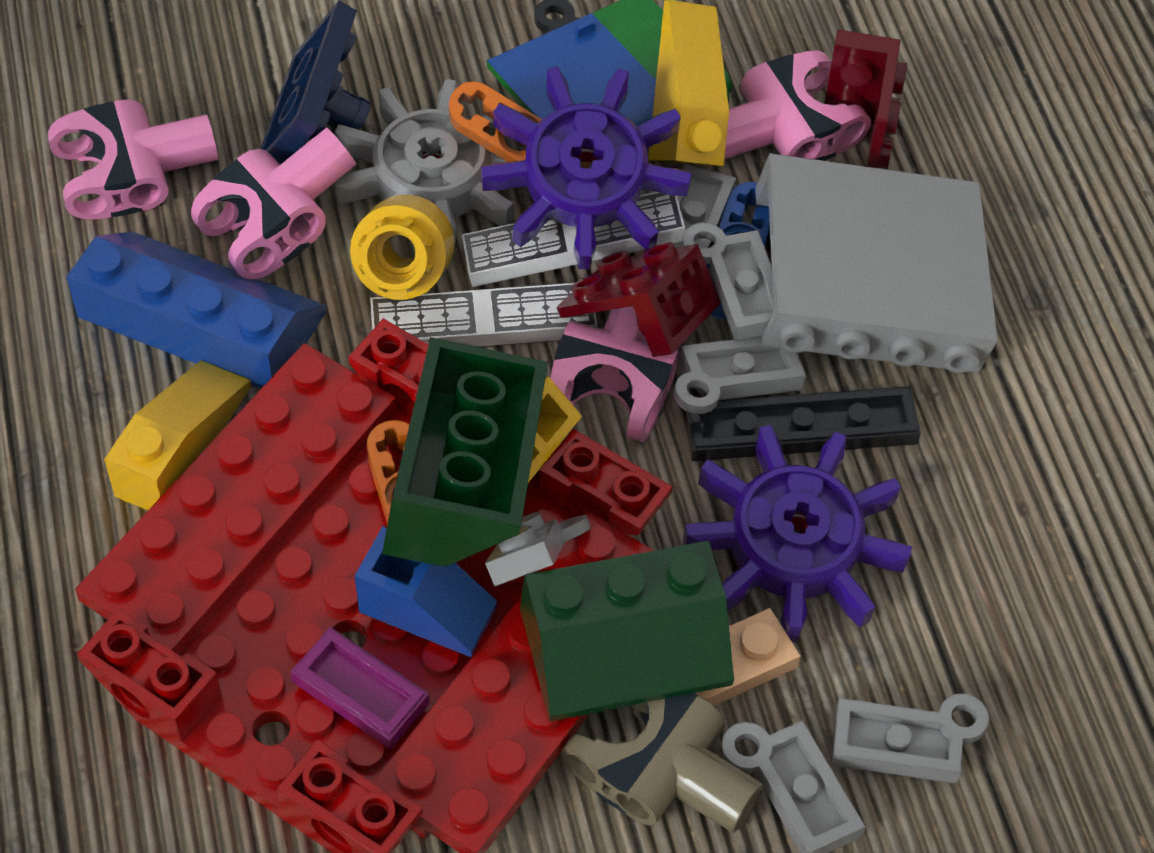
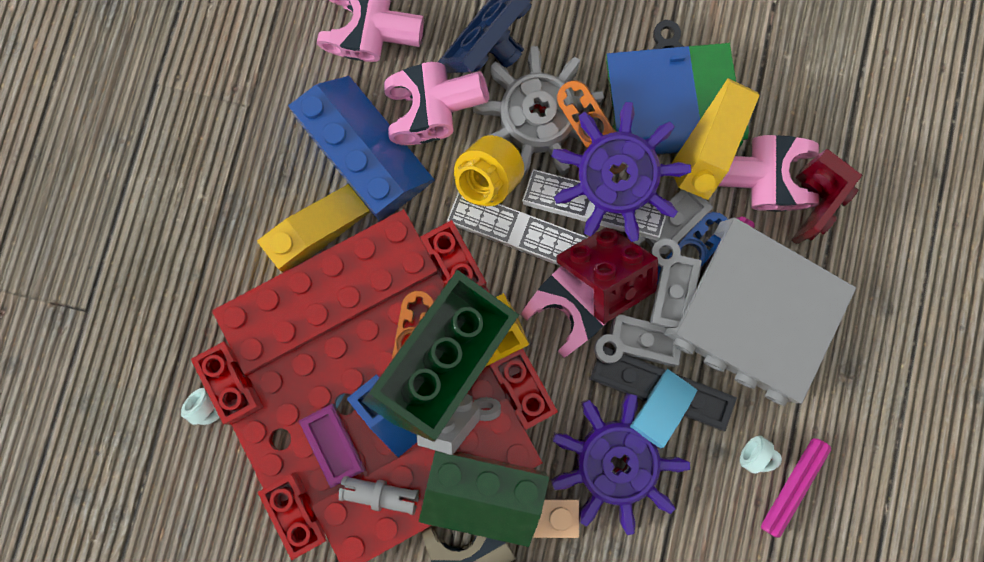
camera: 25 degrees right, 25 degrees up
(117, 736) = (198, 408): none -> light aqua tile
(471, 701) = (379, 495): none -> light grey pin
(818, 429) = (664, 409): none -> medium azure slope
(982, 438) = (757, 456): none -> light aqua tile
(1060, 463) = (796, 487): none -> dark pink axle

